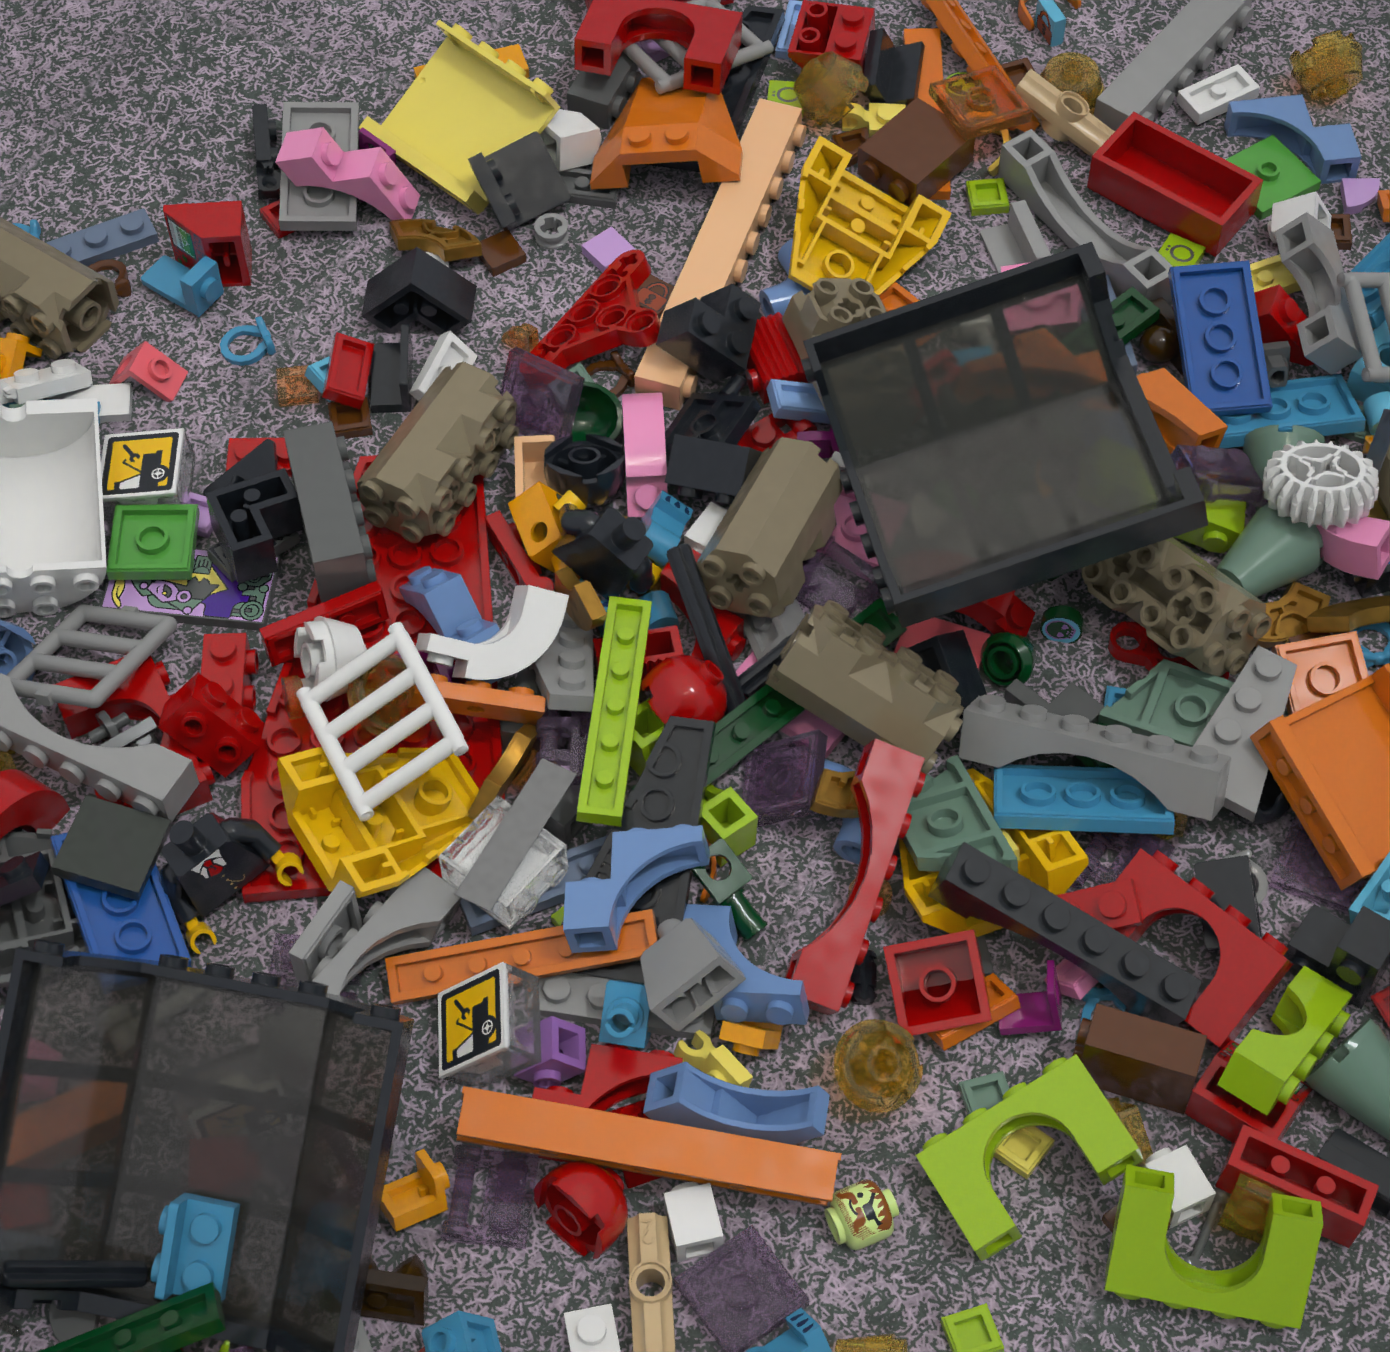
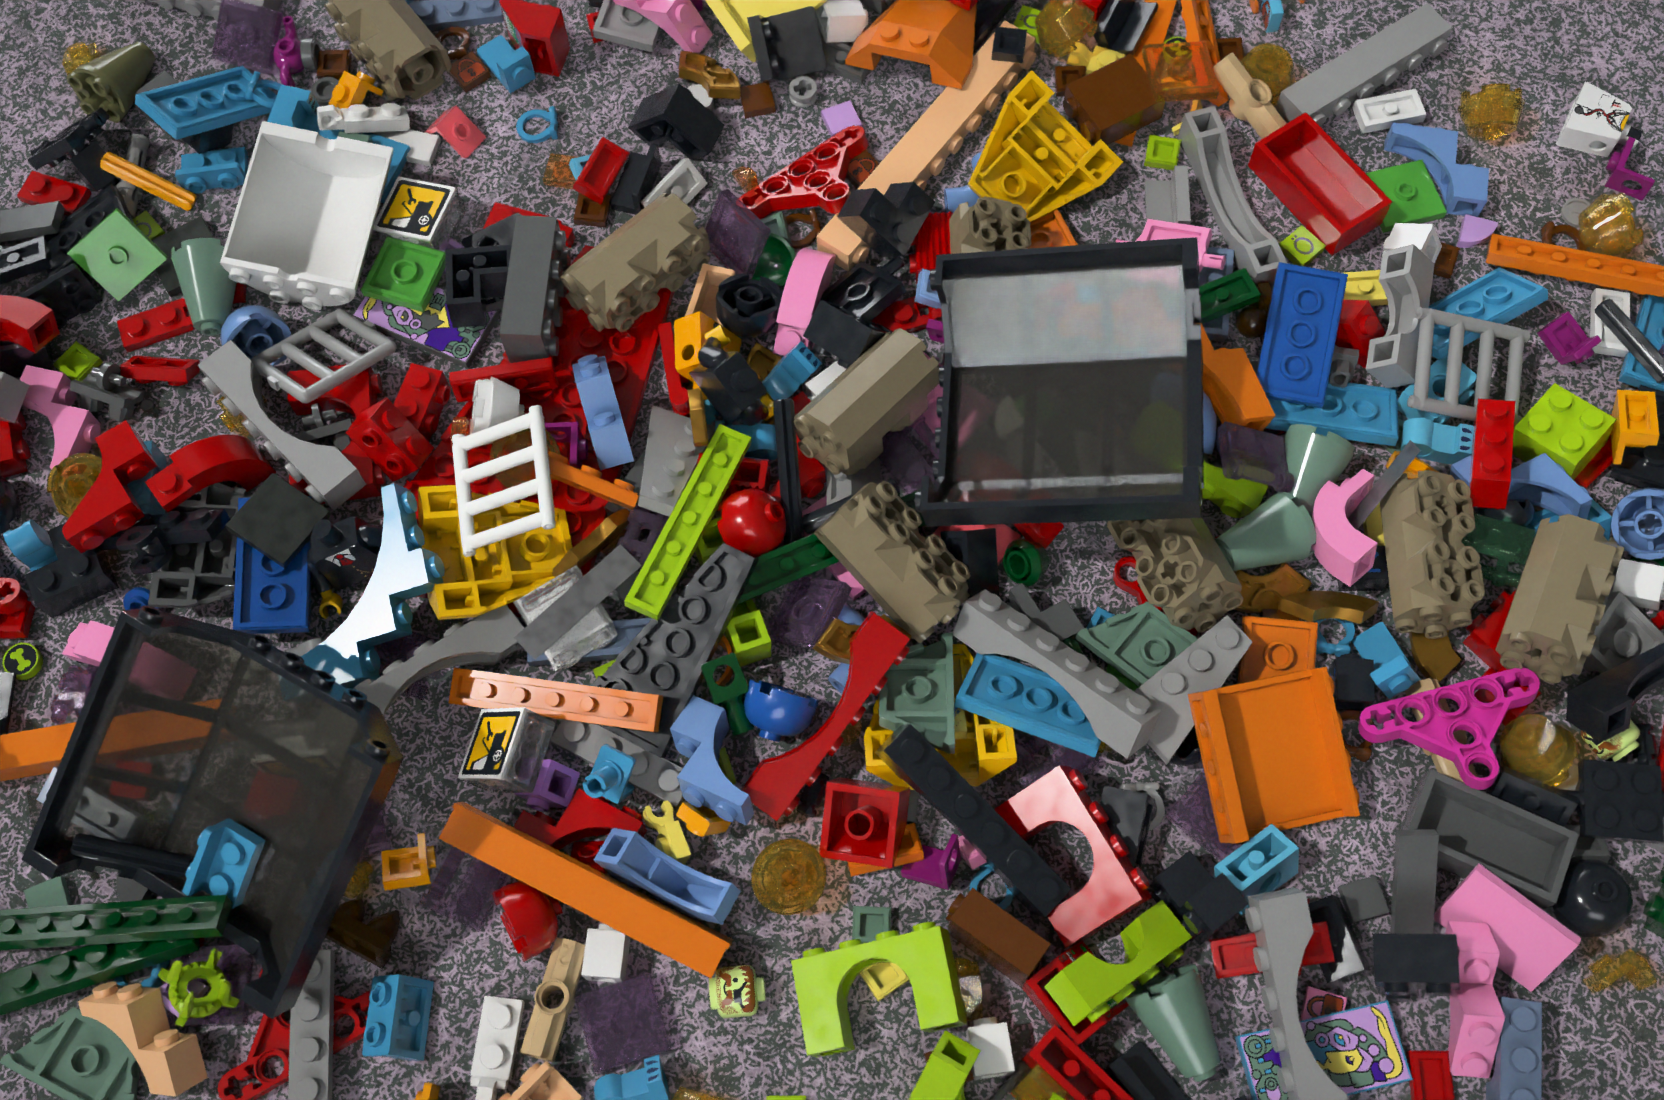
camera: 20 degrees right, 10 degrees up
(140, 305) = (469, 72): none -> tile
(292, 862) = (382, 613): none -> arch
(325, 931) = (405, 639): light grey plate -> none
(524, 638) = (622, 449): white arch -> none
(638, 861) = (659, 653): medium blue arch -> none
(686, 972) = (663, 757): light grey torso -> none
(776, 121) = (1009, 44): none -> black tile
(791, 893) = (778, 710): none -> blue cylinder
(1062, 624) = (1080, 543): dark green tile -> none
(1110, 903) = (1013, 803): red plate -> none
(1320, 484) = (1329, 492): white gear -> none

